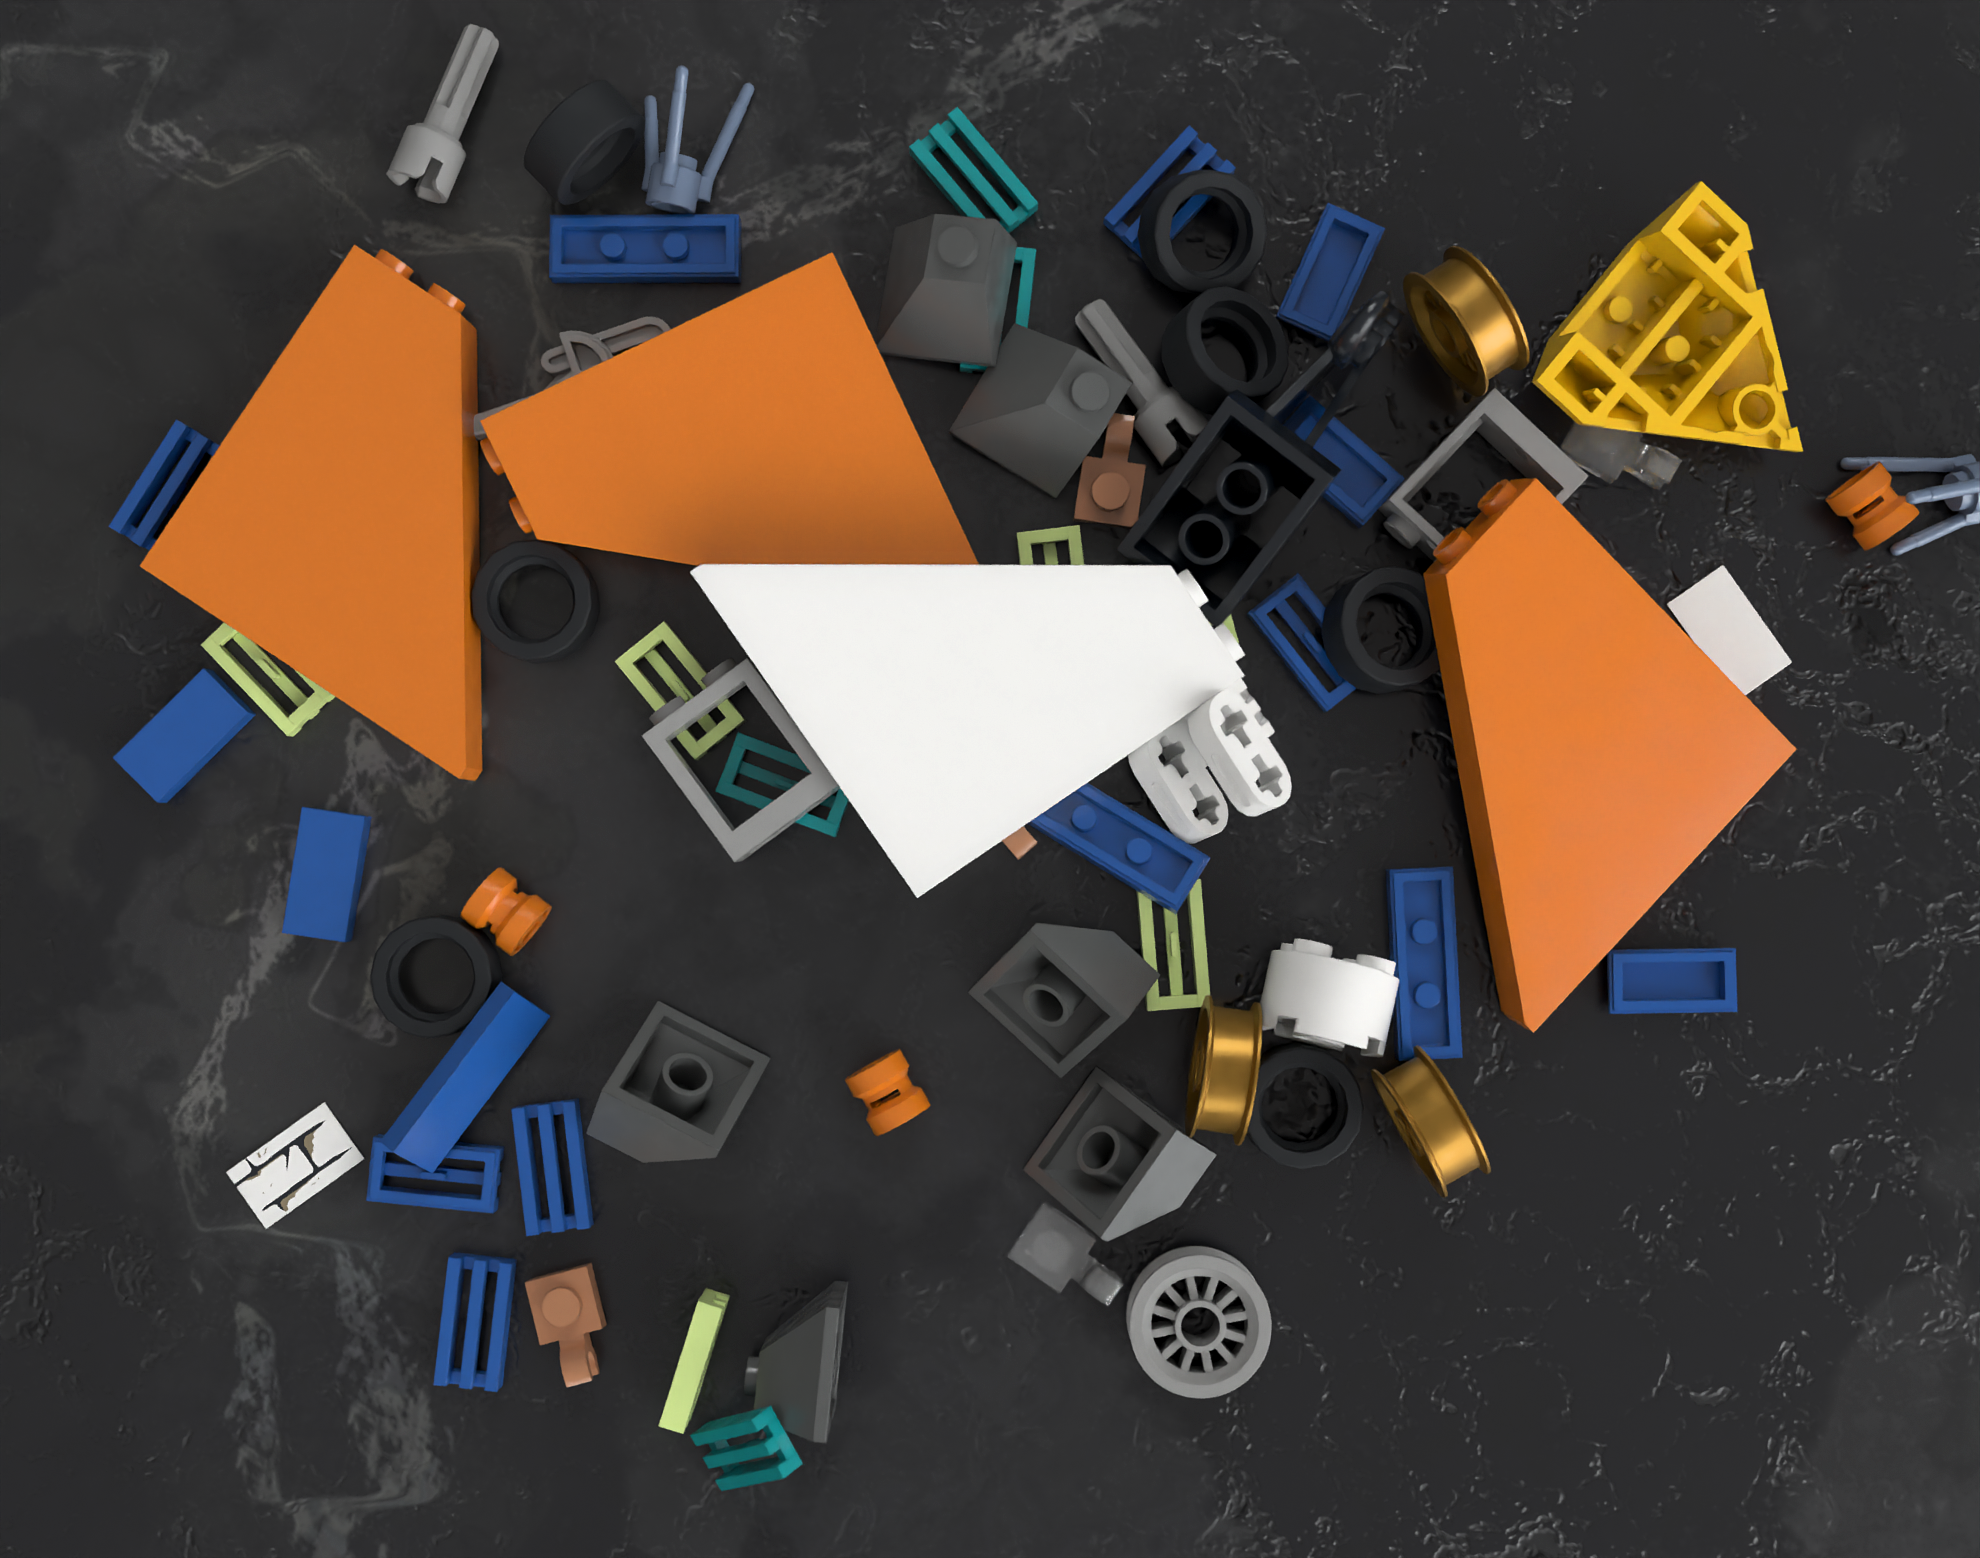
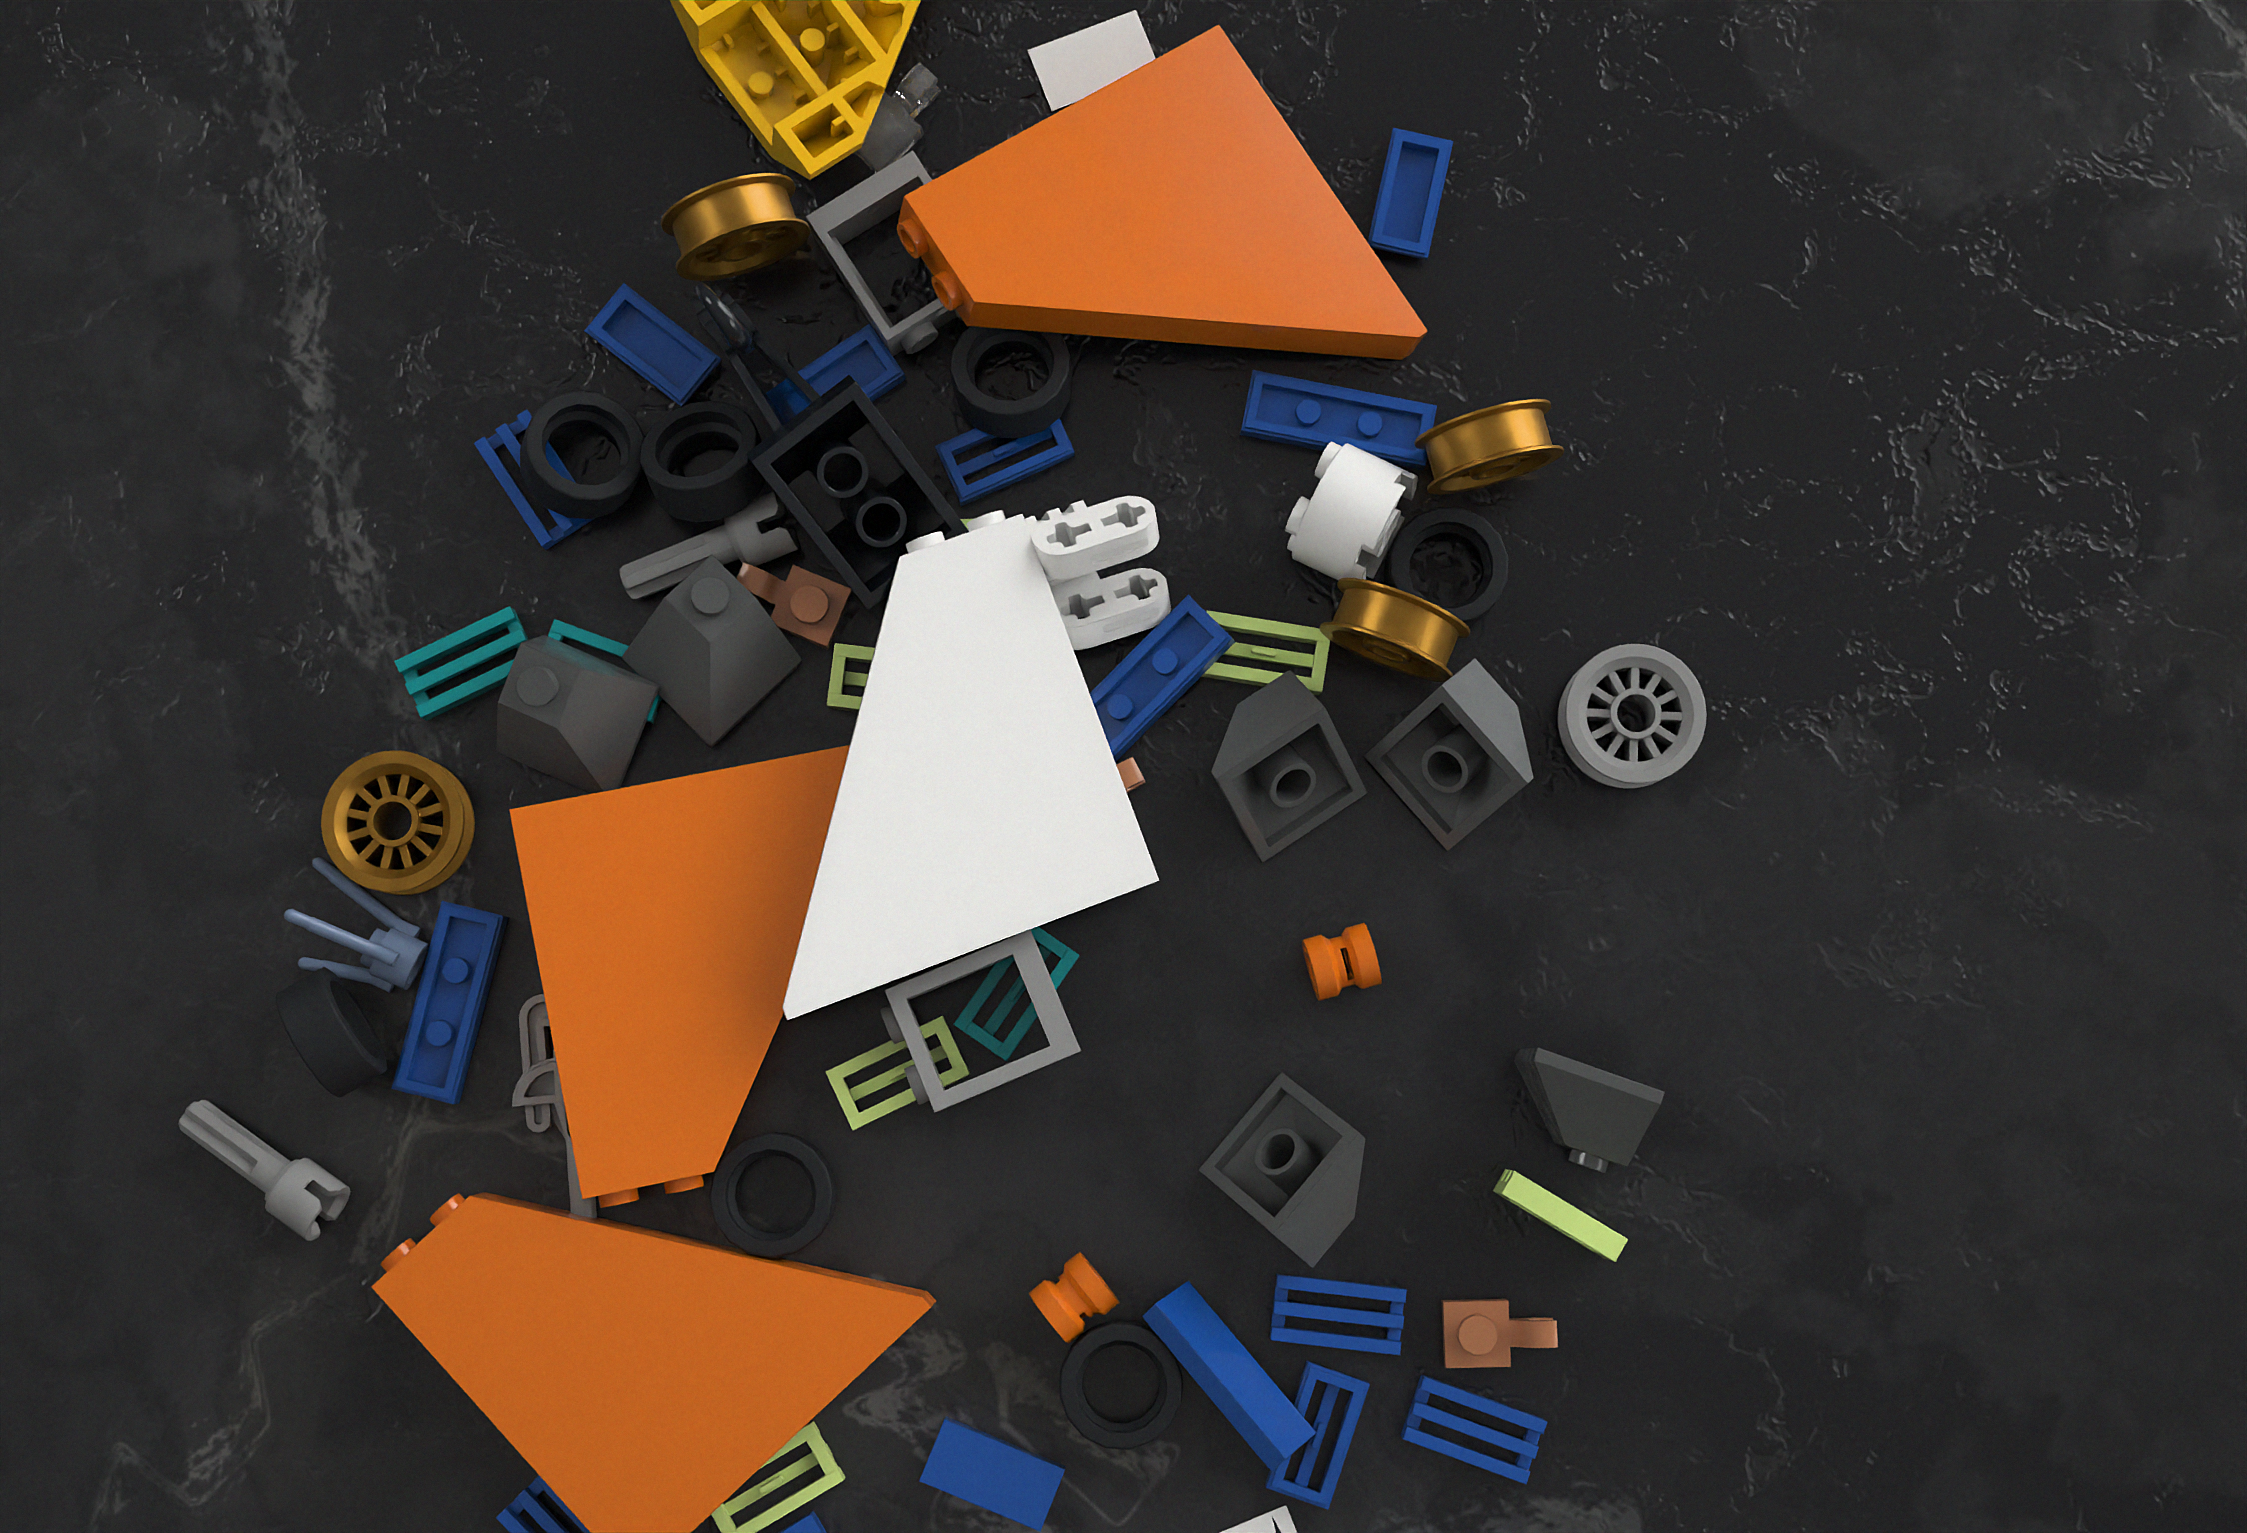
camera: 80 degrees left, 5 degrees down
(728, 1457) = (1681, 1173): teal tile -> none
(753, 125) = (380, 769): none -> pearl gold wheel
(1058, 1250) = (1535, 835): clear plate -> none

